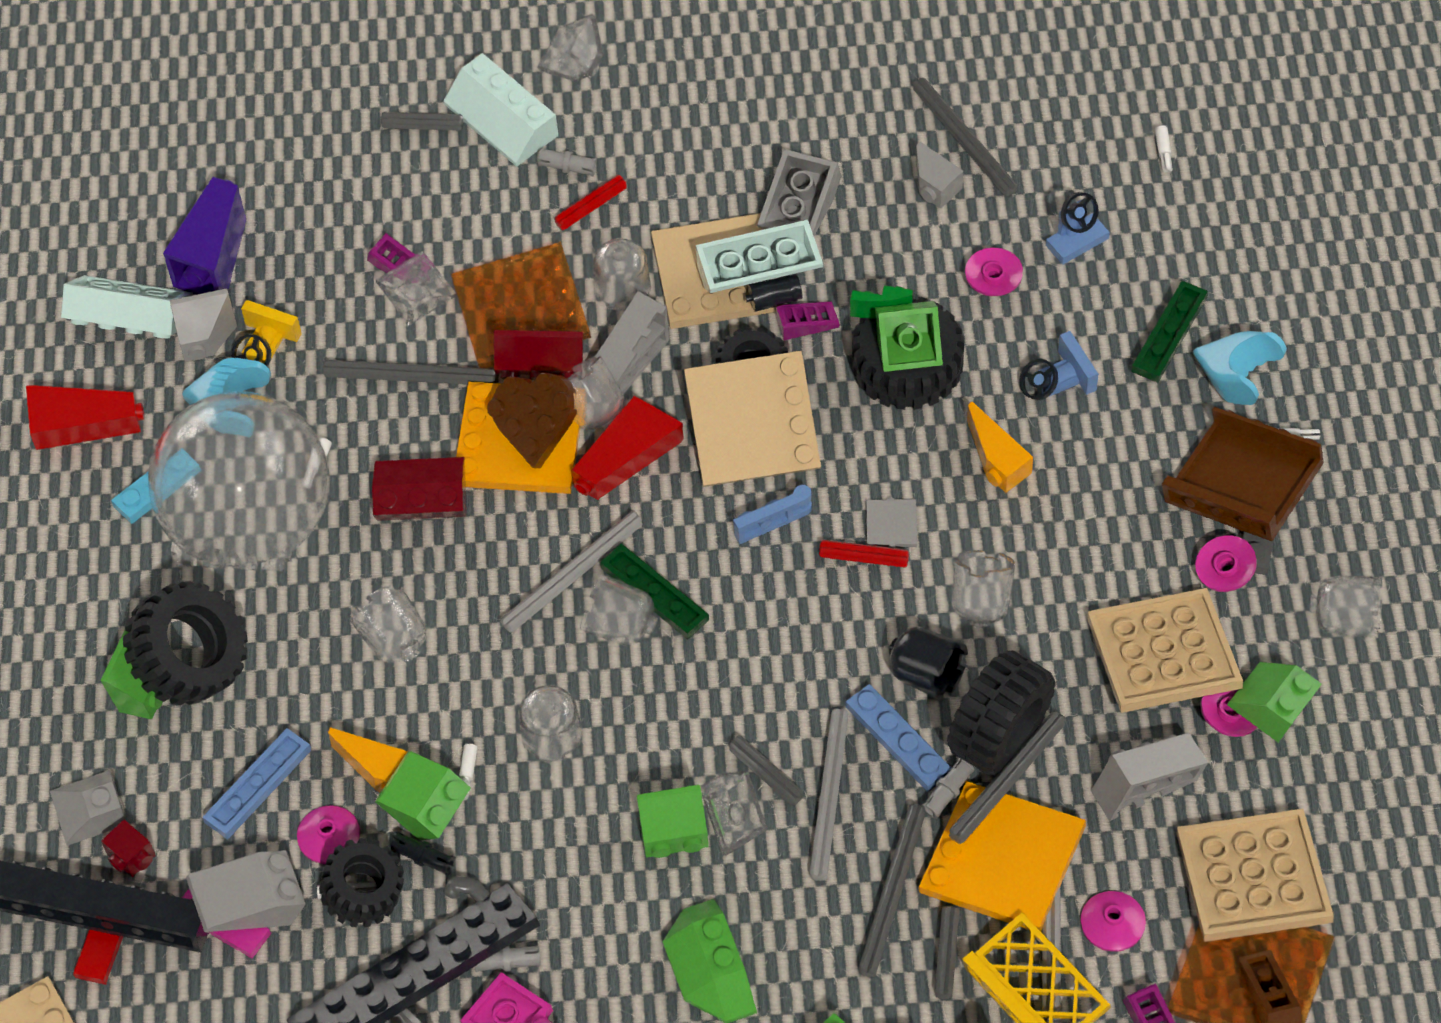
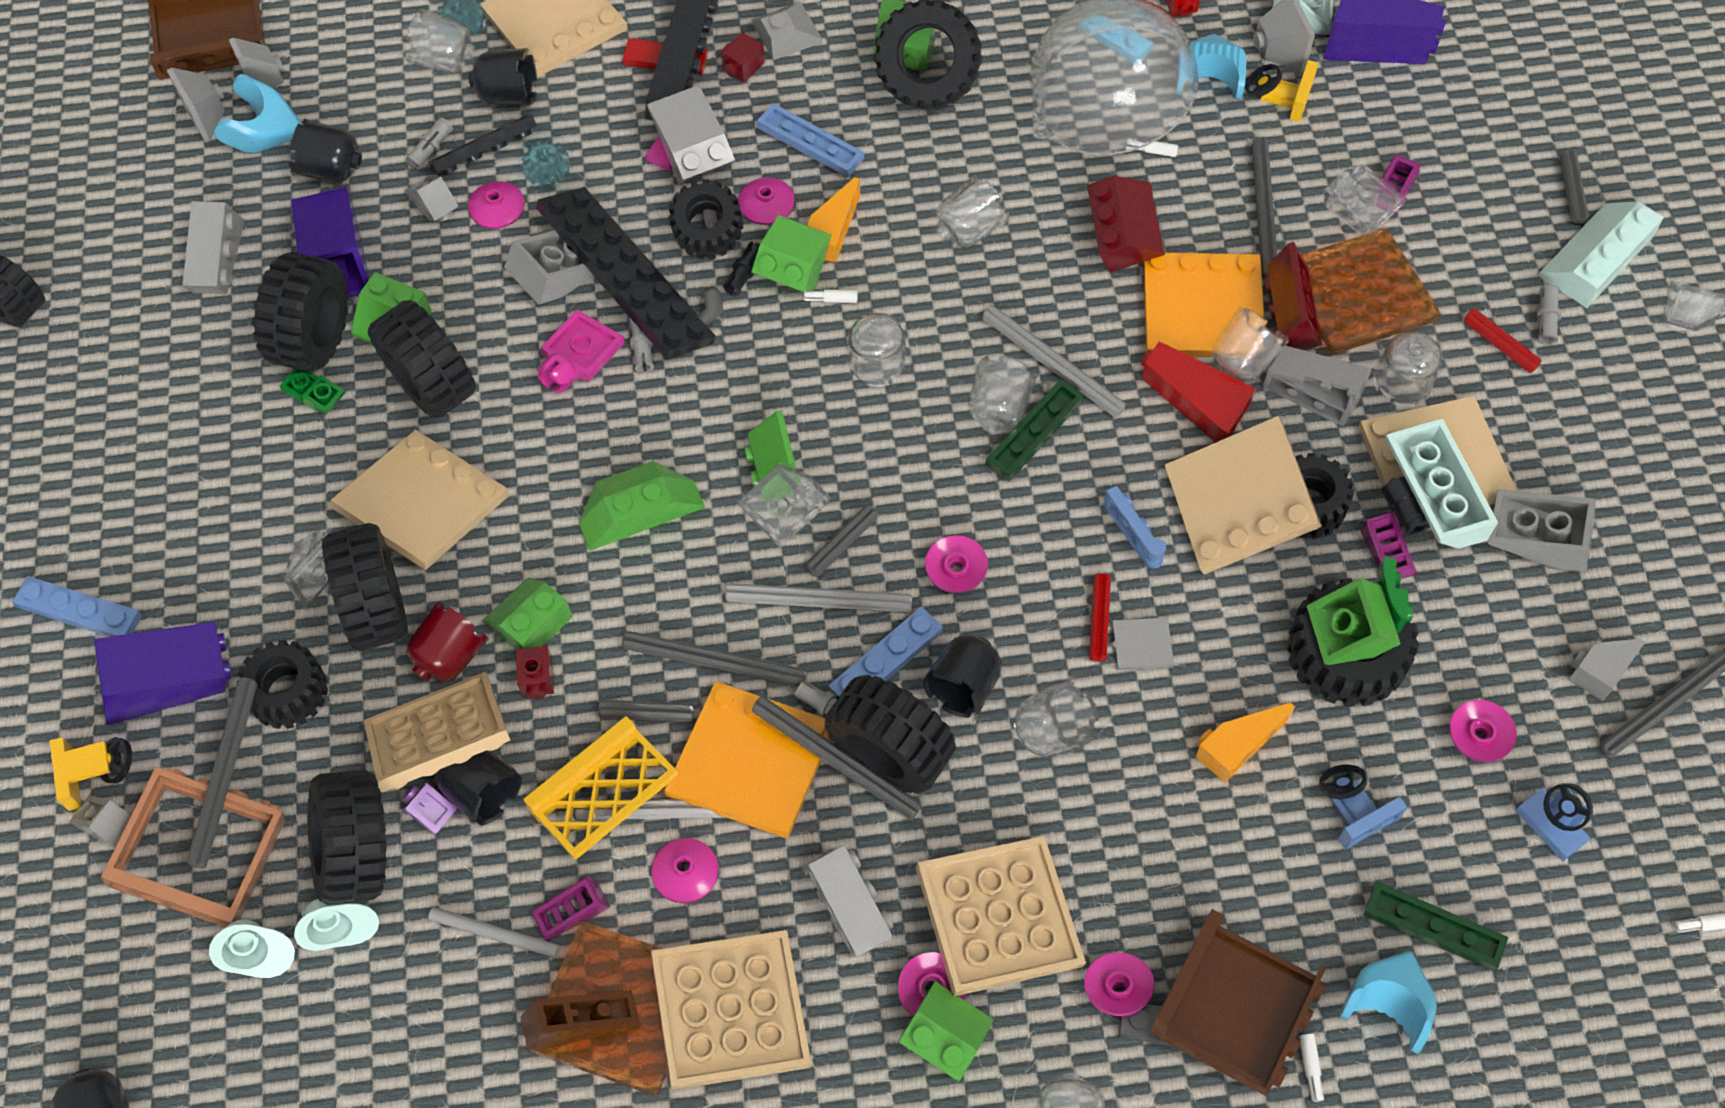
camera: 85 degrees right, 5 degrees up
(534, 413) = (1212, 297): reddish brown plate -> none
(803, 655) = (959, 552): none -> dark pink dish

